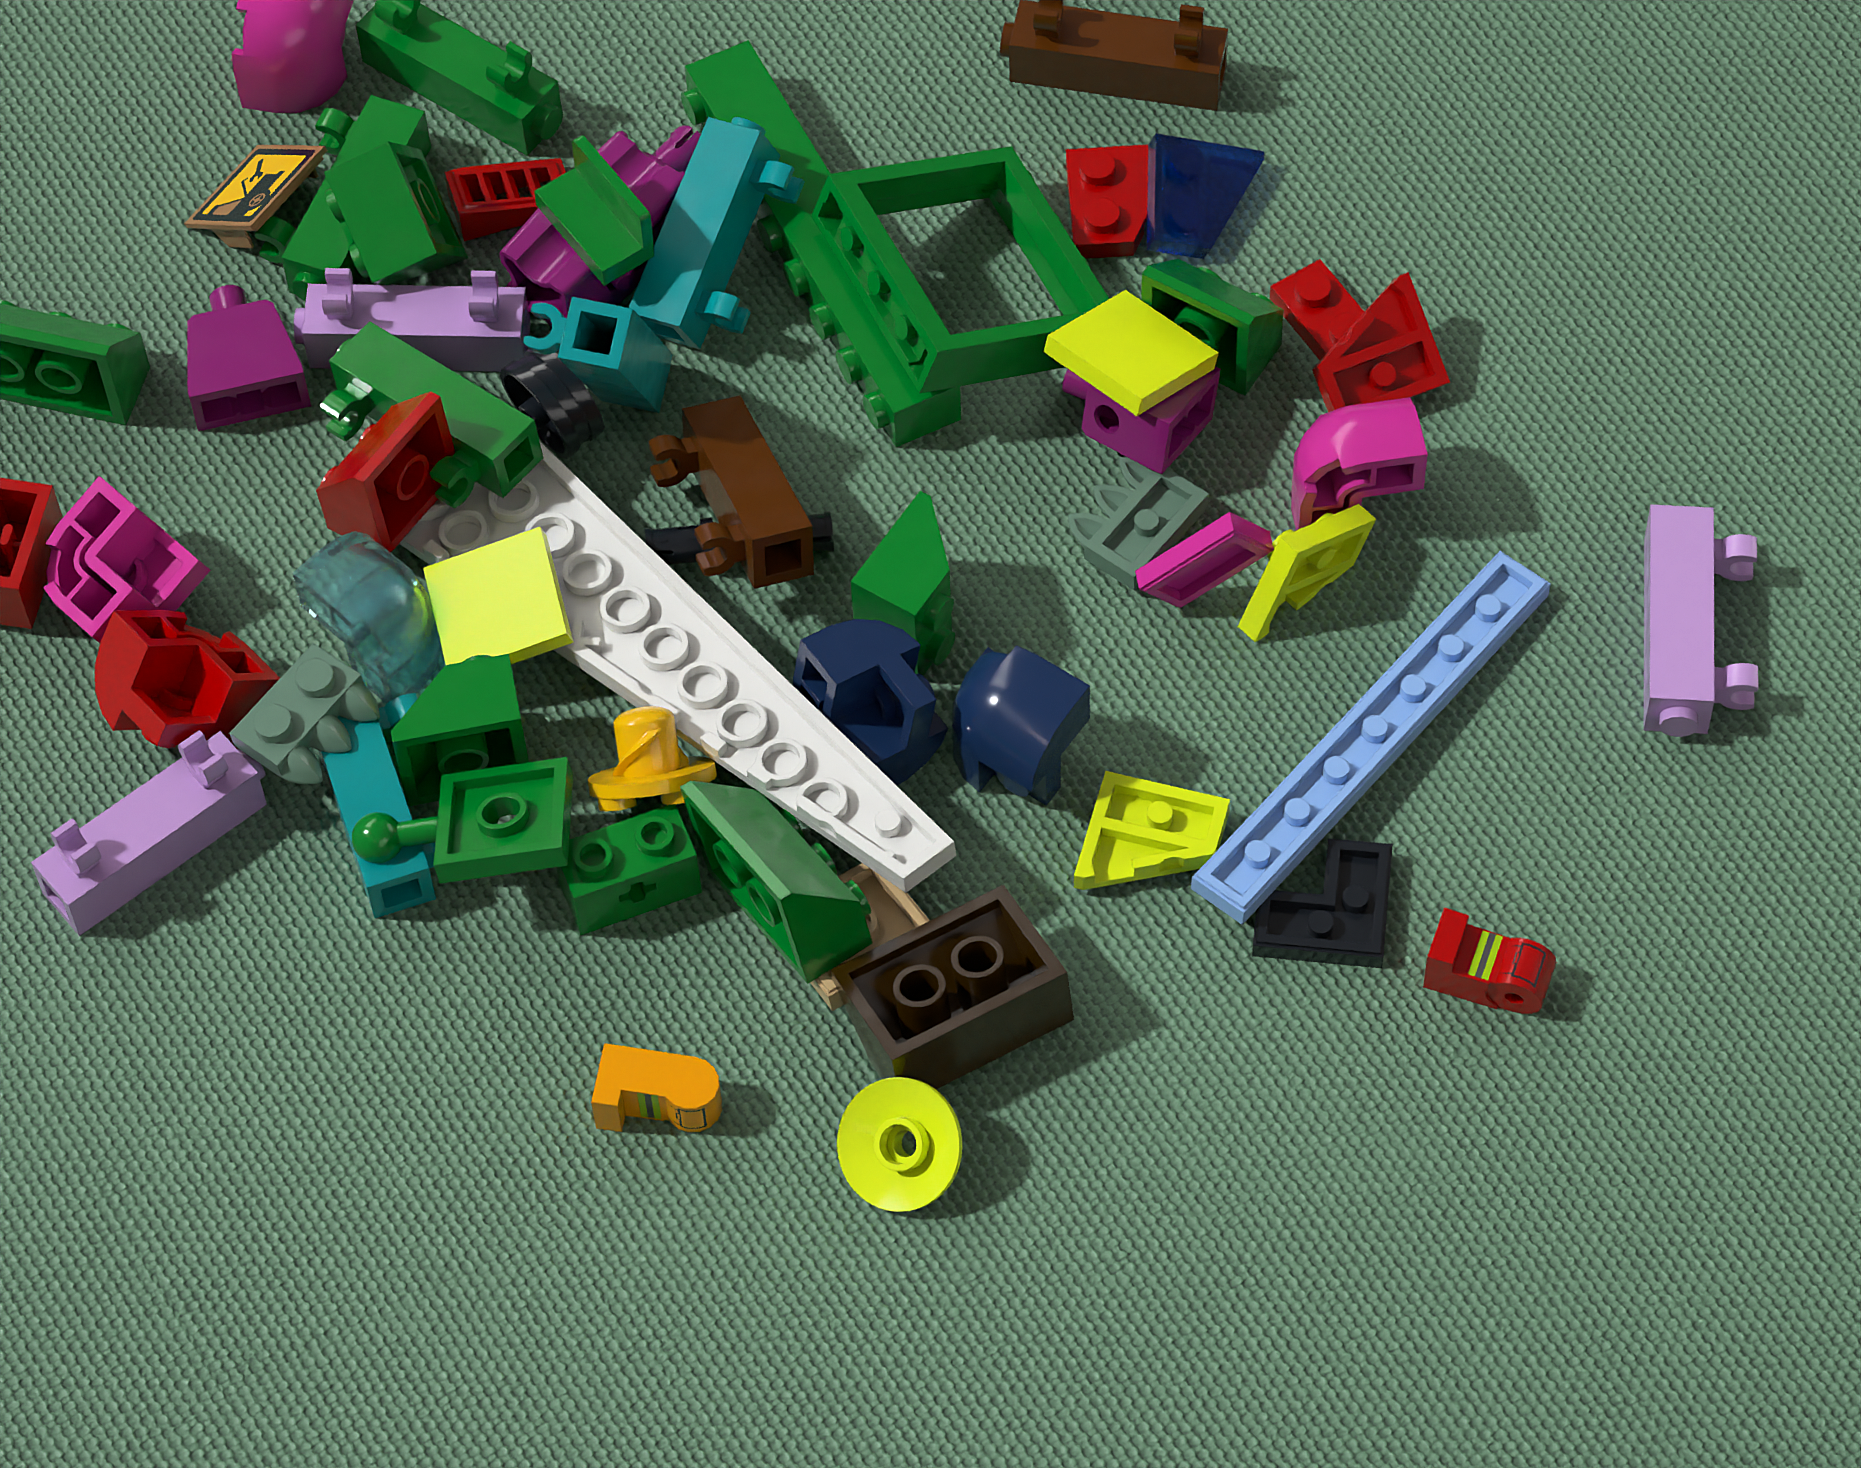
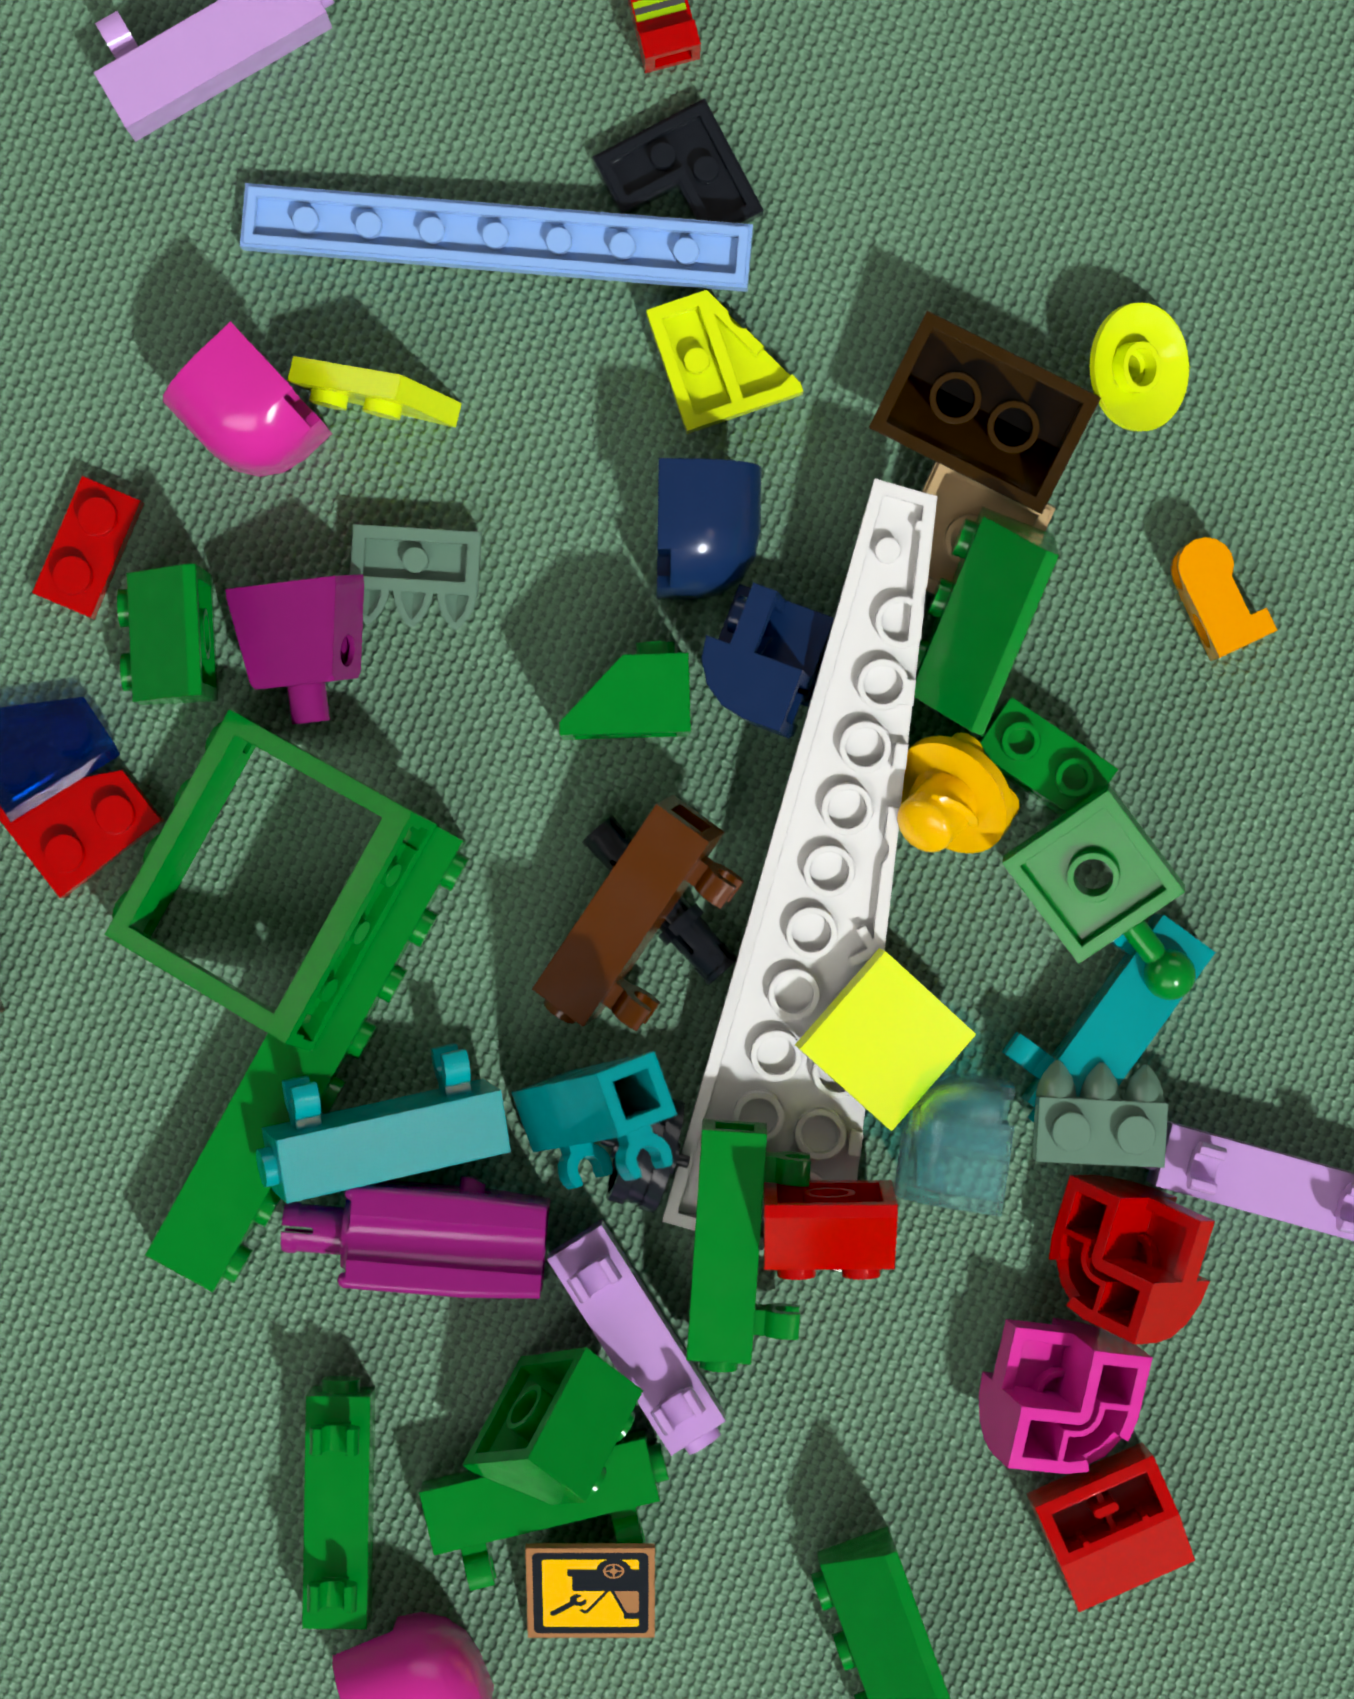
camera: 130 degrees left, 30 degrees up
(241, 362) = (771, 1467): magenta torso -> none
(459, 725) = (1015, 976): green slope -> none
(485, 182) = (439, 1397): red slope -> none
(598, 215) = (461, 1228): green panel -> none
(1131, 352) = (277, 662): neon yellow tile -> none
(1204, 560) = (438, 469): dark pink tile -> none
(1383, 354) = (111, 466): red wing -> none

